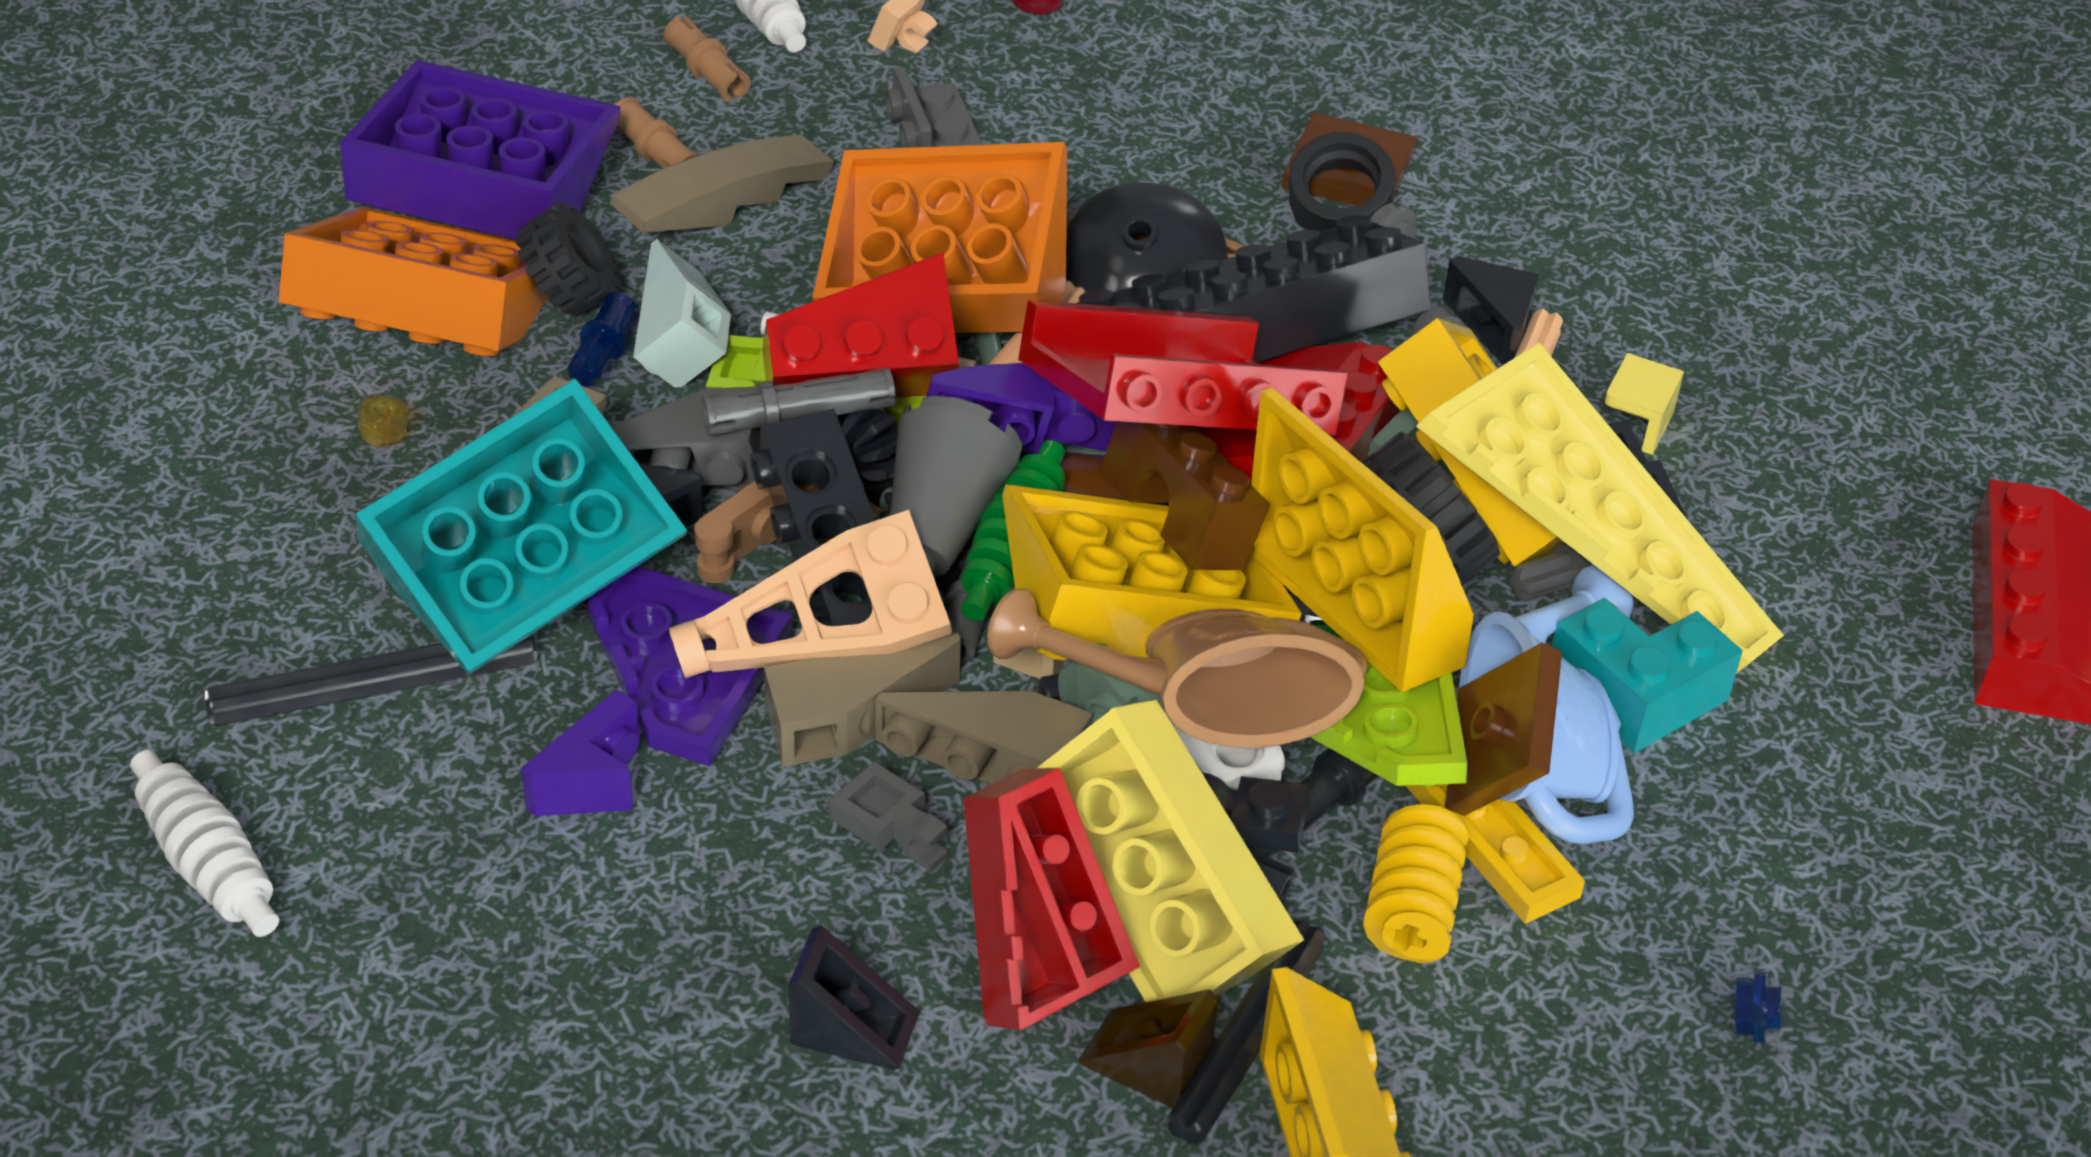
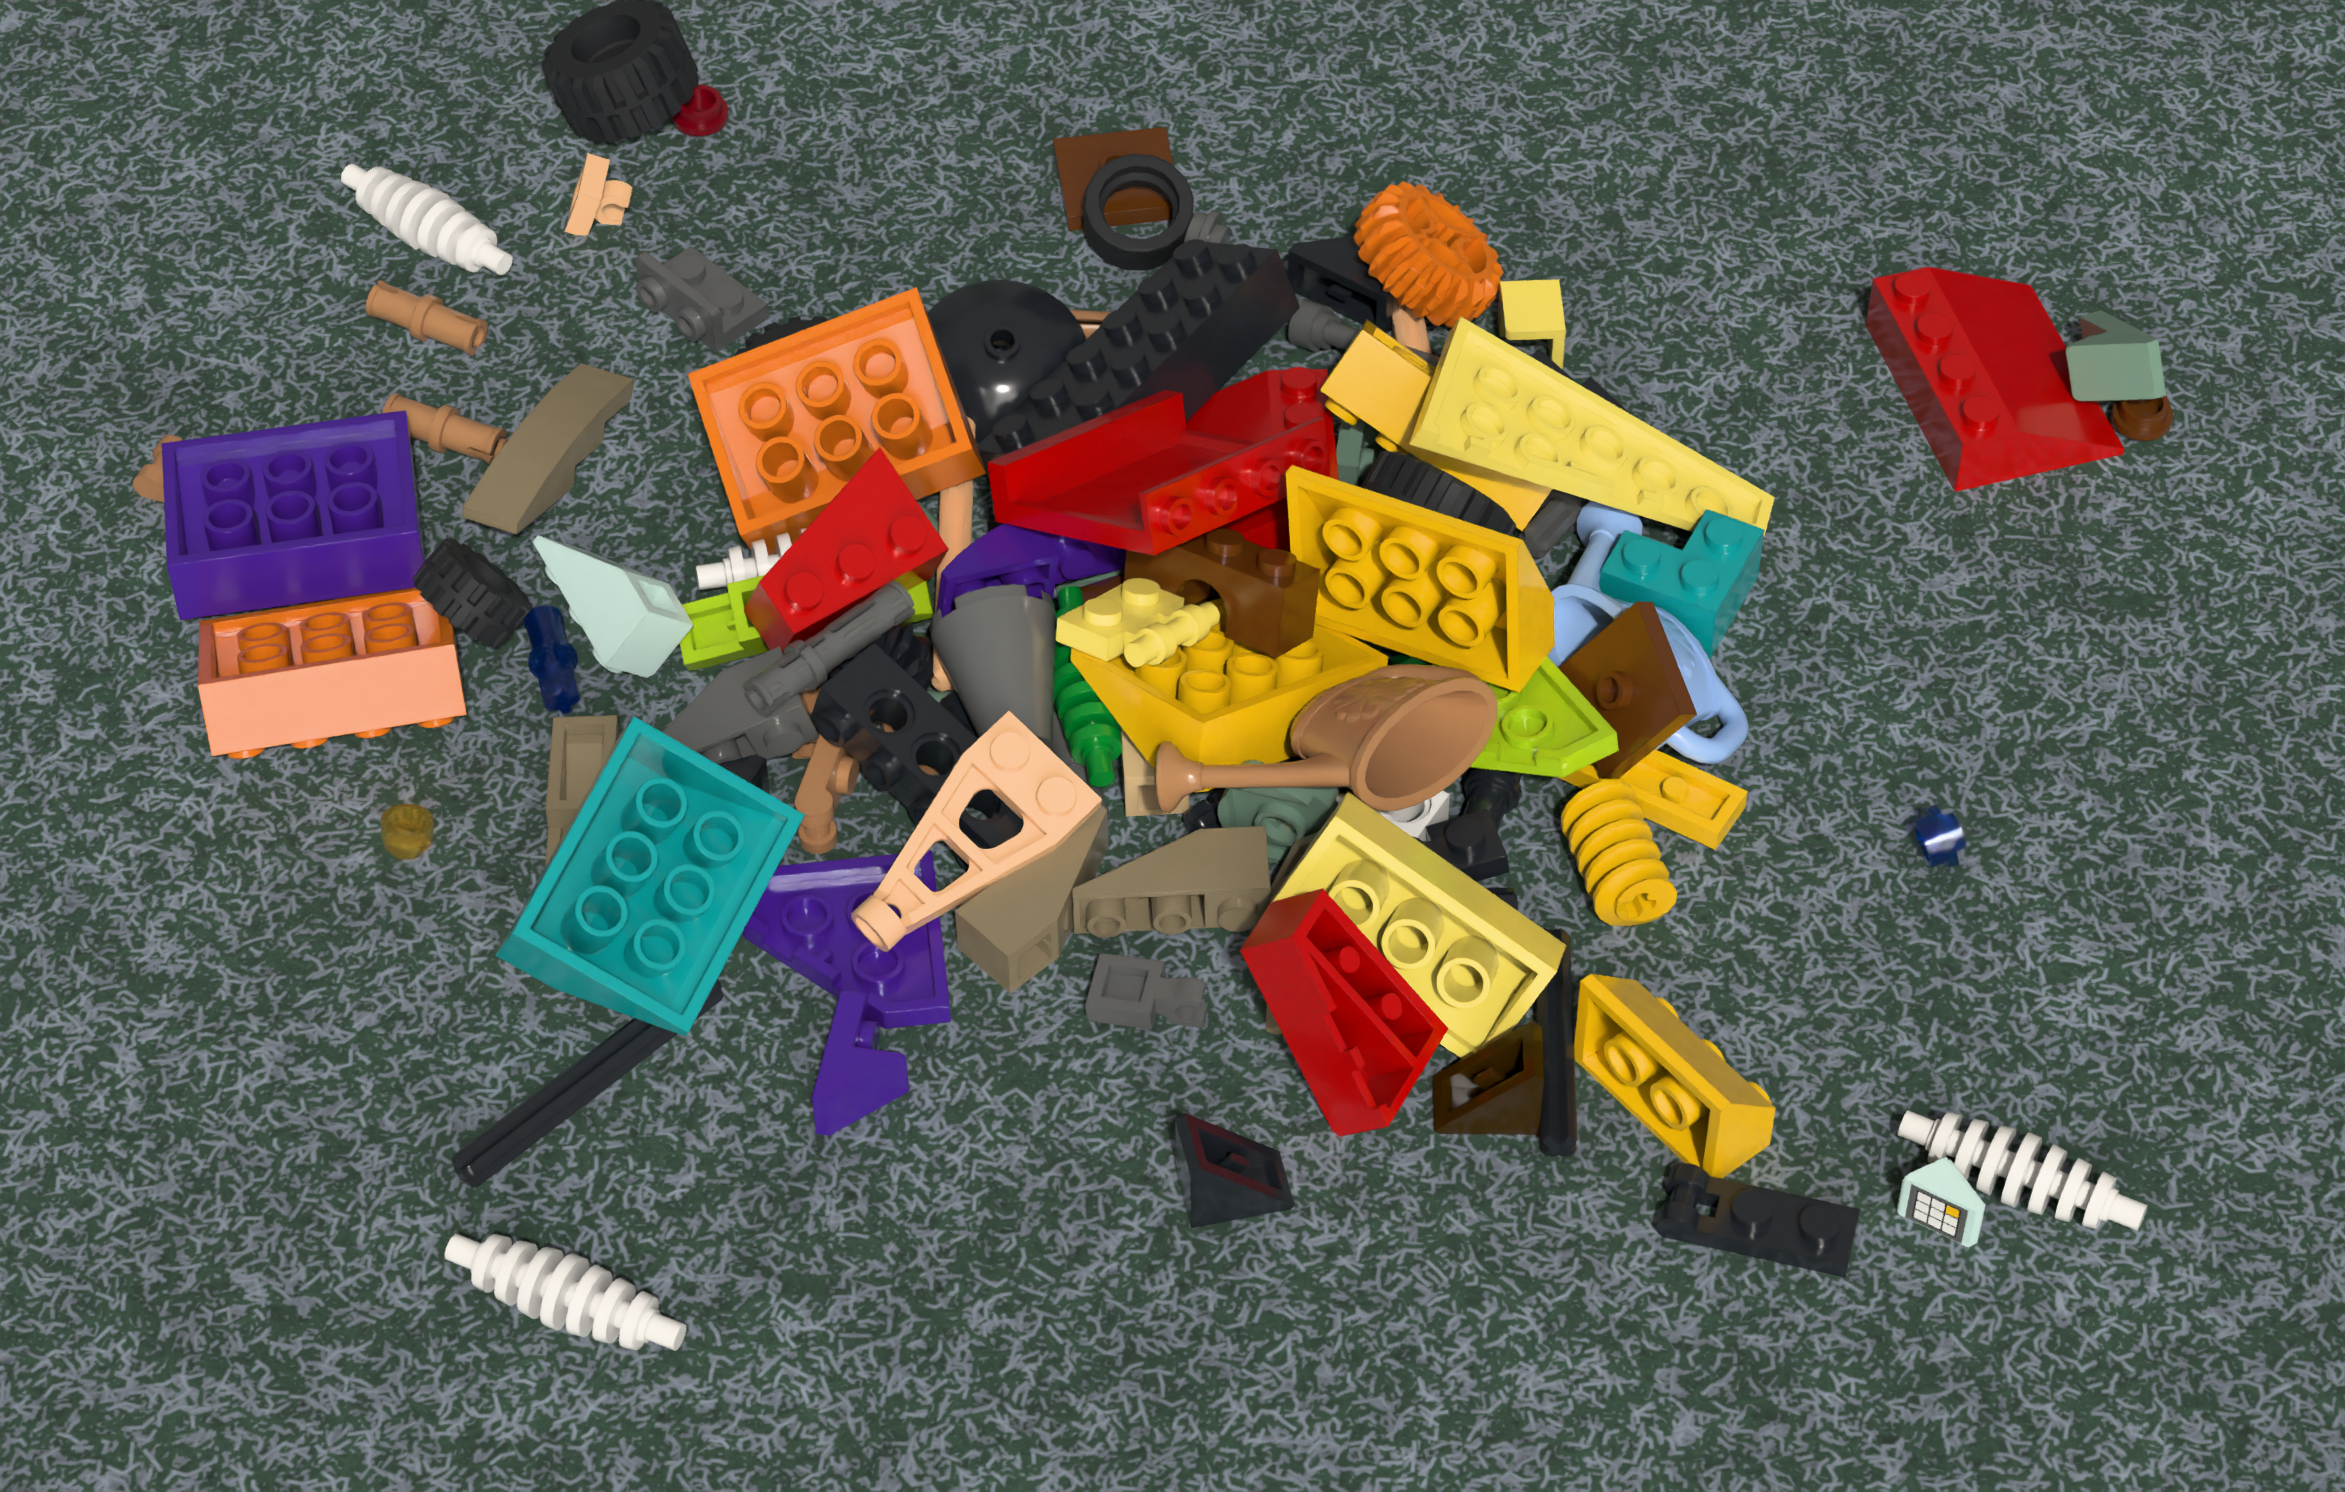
camera: 25 degrees left, 5 degrees up
(1078, 487) = (1136, 622): none -> light yellow plate
(1573, 305) = (1428, 254): none -> orange gear

